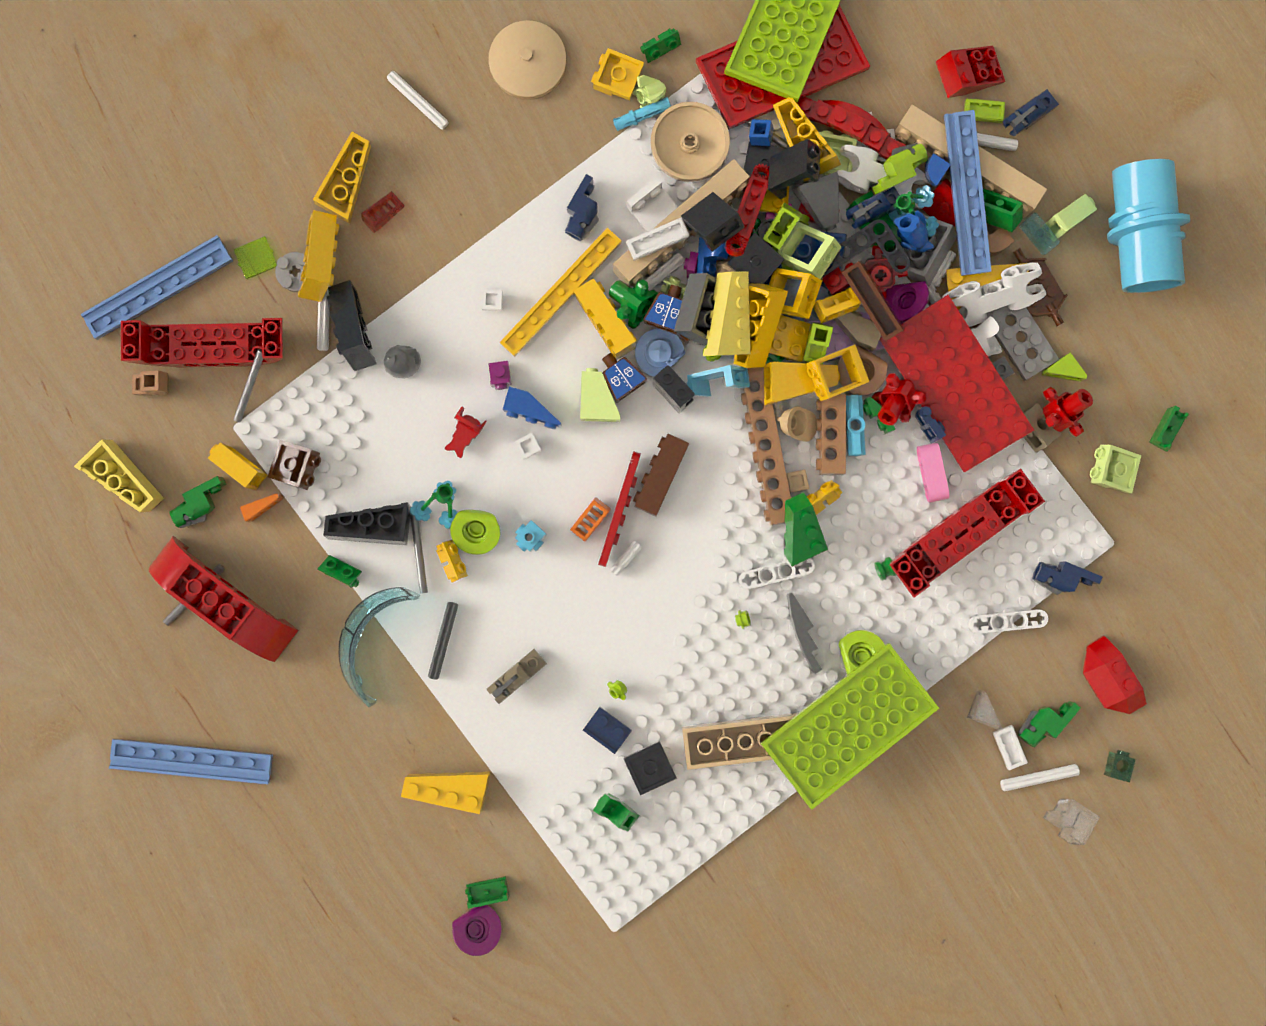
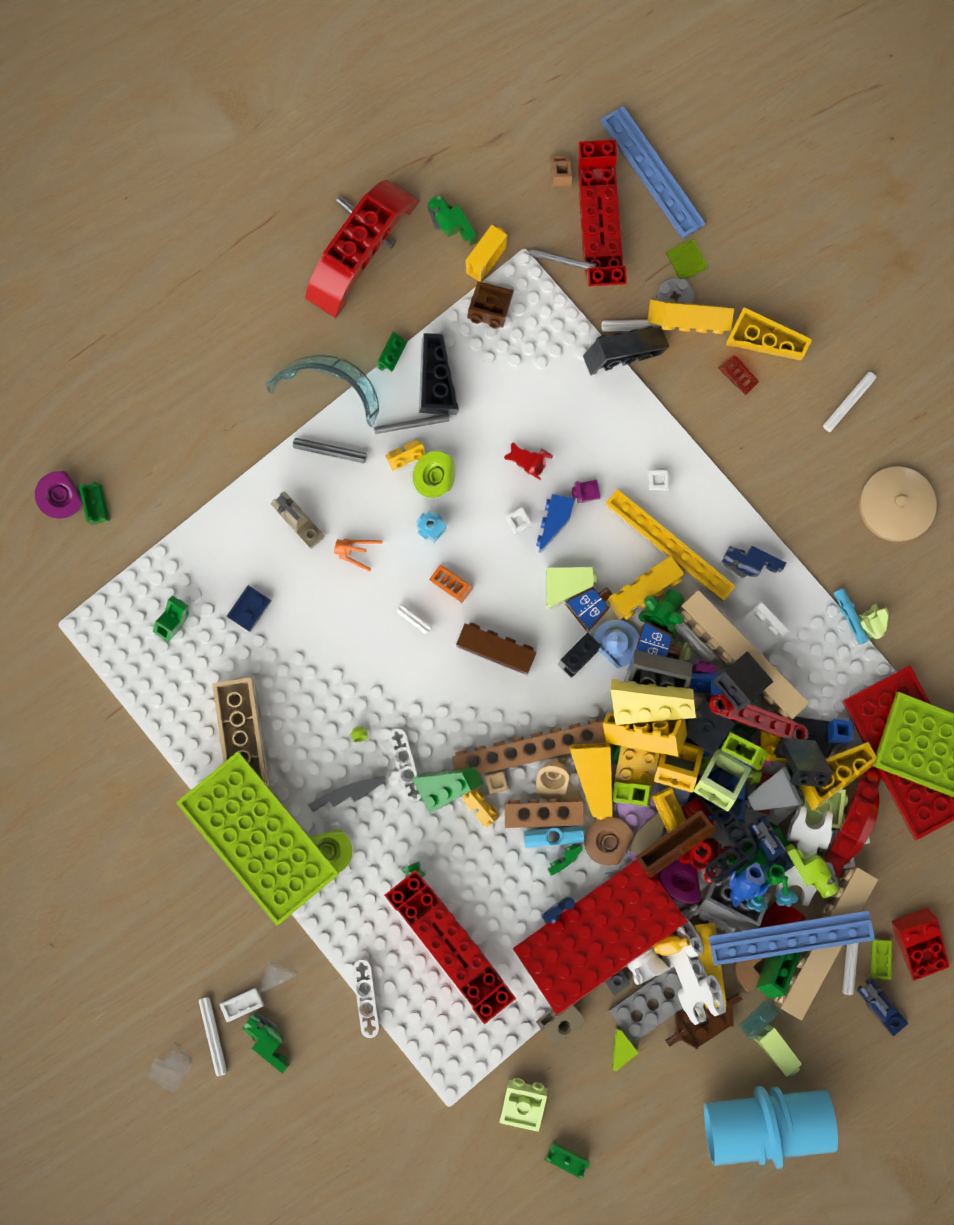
camera: 85 degrees right, 5 degrees down
(119, 474) = (473, 149): light yellow wedge -> none
(191, 761) = (211, 228): medium blue plate -> none
(255, 509) = (447, 272): orange slope -> none
(400, 361) = (593, 396): dark grey piece -> none
(443, 494) = (467, 442): plant -> none
(451, 790) = (189, 463): yellow wedge -> none
(547, 627) = (345, 547): none -> orange plant
(617, 74) = (889, 590): yellow plate -> none
(617, 689) = (287, 616): lime plate -> none
(618, 517) = (469, 614): red plate -> none
(650, 768) = (213, 650): black plate -> none
(657, 239) = (723, 630): white plate -> none
(667, 41) = (927, 639): green hinge -> none
(690, 141) = (826, 662): tan dish -> none
(734, 377) = (592, 710): medium azure panel -> none
(853, 365) = (611, 831): yellow window -> none
(897, 400) = (580, 876): red piece -> none
(932, 472) = (510, 916): bright pink beam -> none
(935, 169) = (813, 905): blue brick -> none
(970, 311) = (671, 945): none -> yellow plant
(1064, 577) = (410, 1051): dark blue plate -> none
(1066, 409) = (579, 1049): red piece -> none
(1112, 677) = (312, 1106): red wedge -> none
(1125, 772) = (217, 1120): clear green brick -> none

